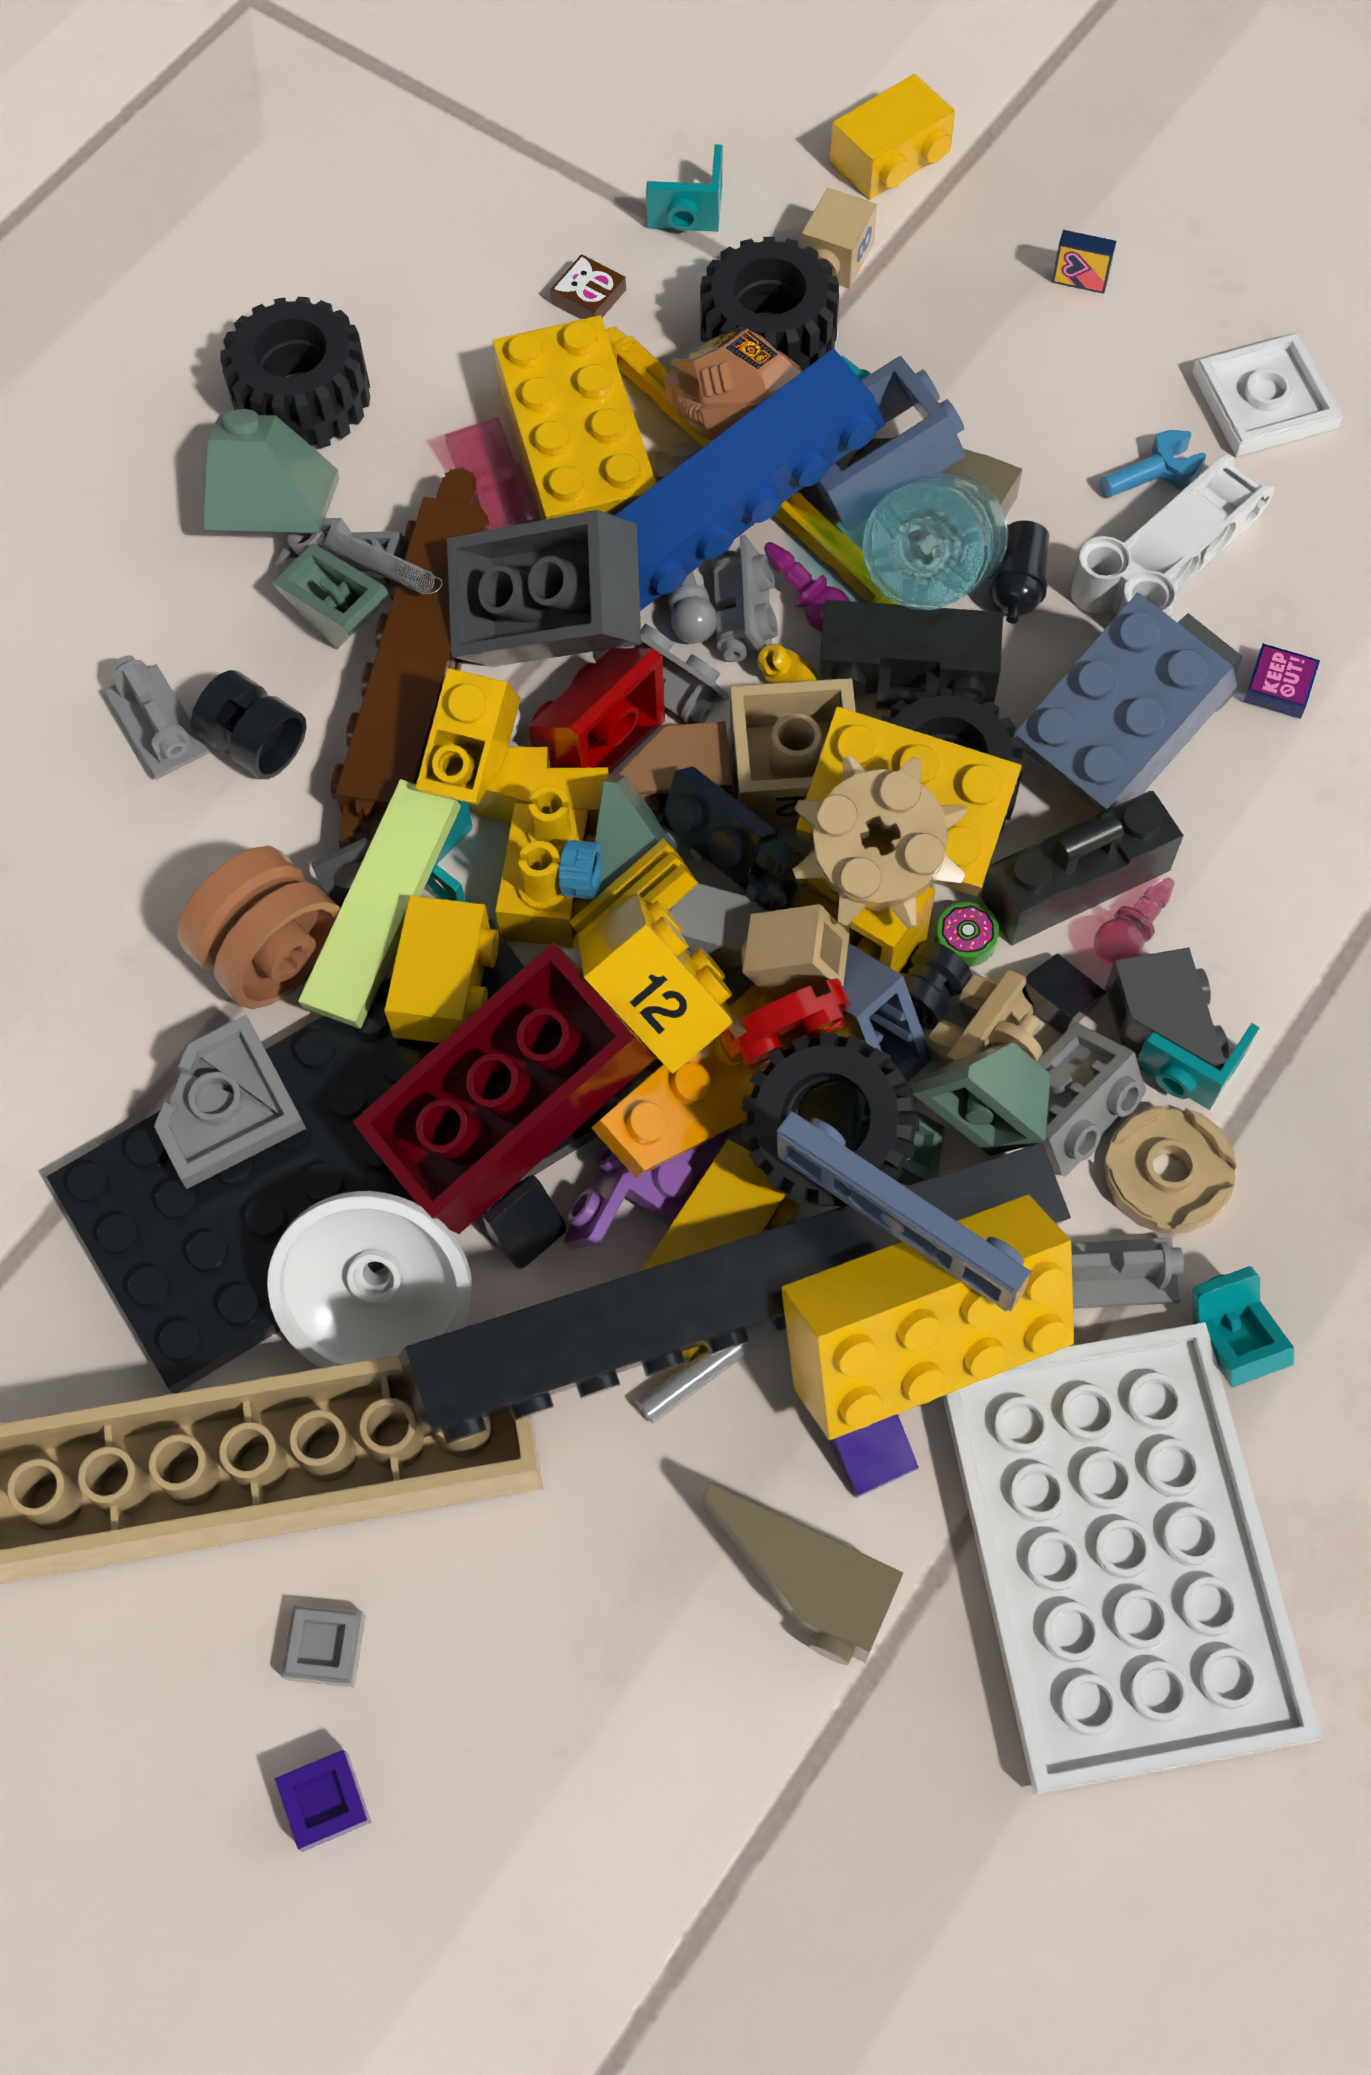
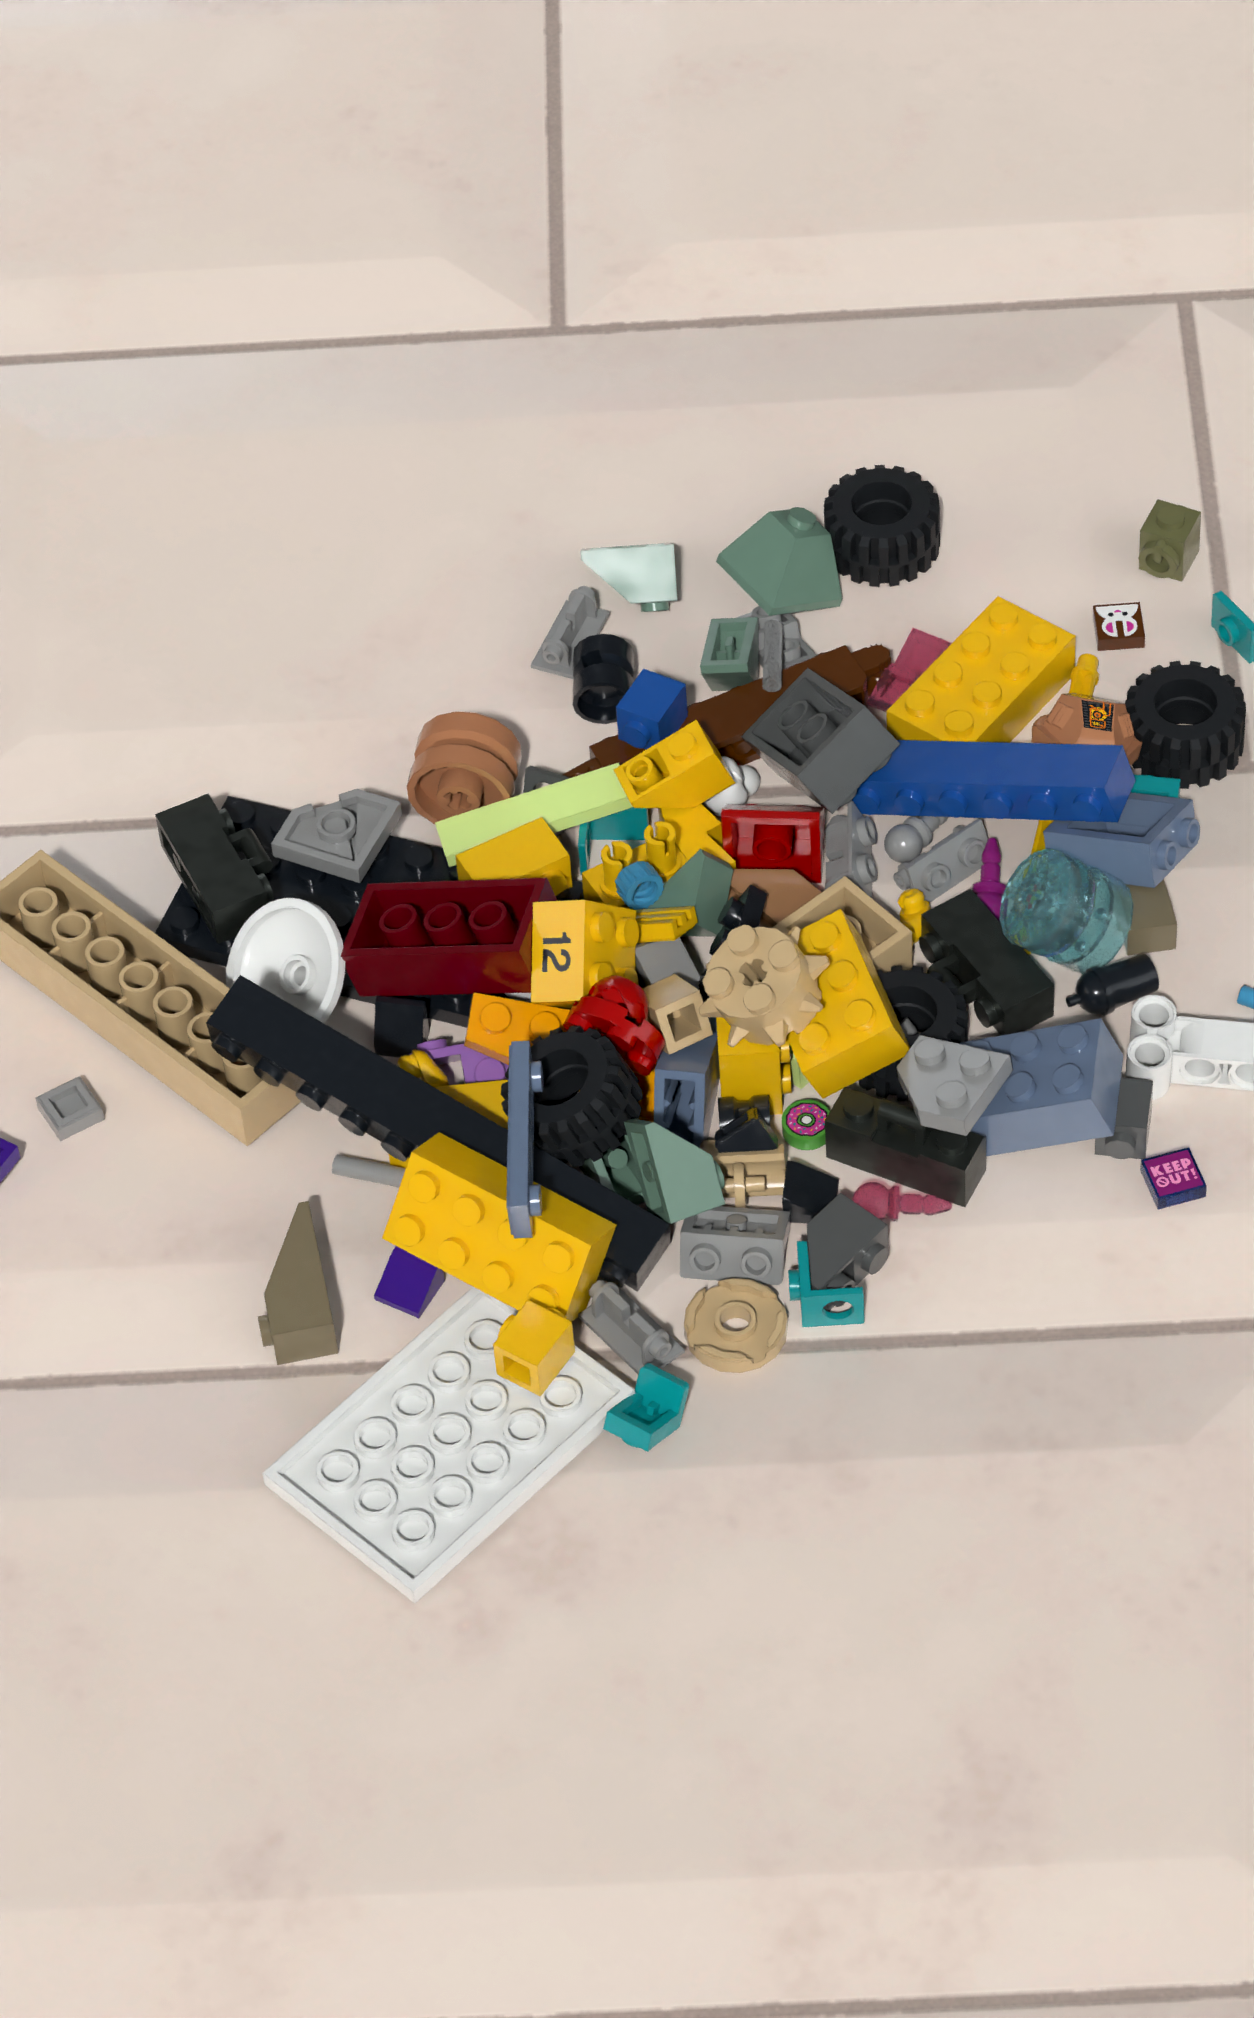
camera: 55 degrees right, 15 degrees down
(138, 599) = (637, 572): none -> slope
(156, 1266) = (205, 857): none -> pearl dark grey piece
(363, 706) = (651, 709): none -> blue brick
(538, 183) = (1169, 540): none -> olive brick
(625, 1242) = (423, 1067): none -> yellow arm
(767, 983) = (625, 993): none -> red plate
(975, 996) = (746, 1133): none -> black slope
(1098, 770) = (951, 1082): none -> light grey plate
(1100, 1384) = (533, 1347): none -> yellow brick

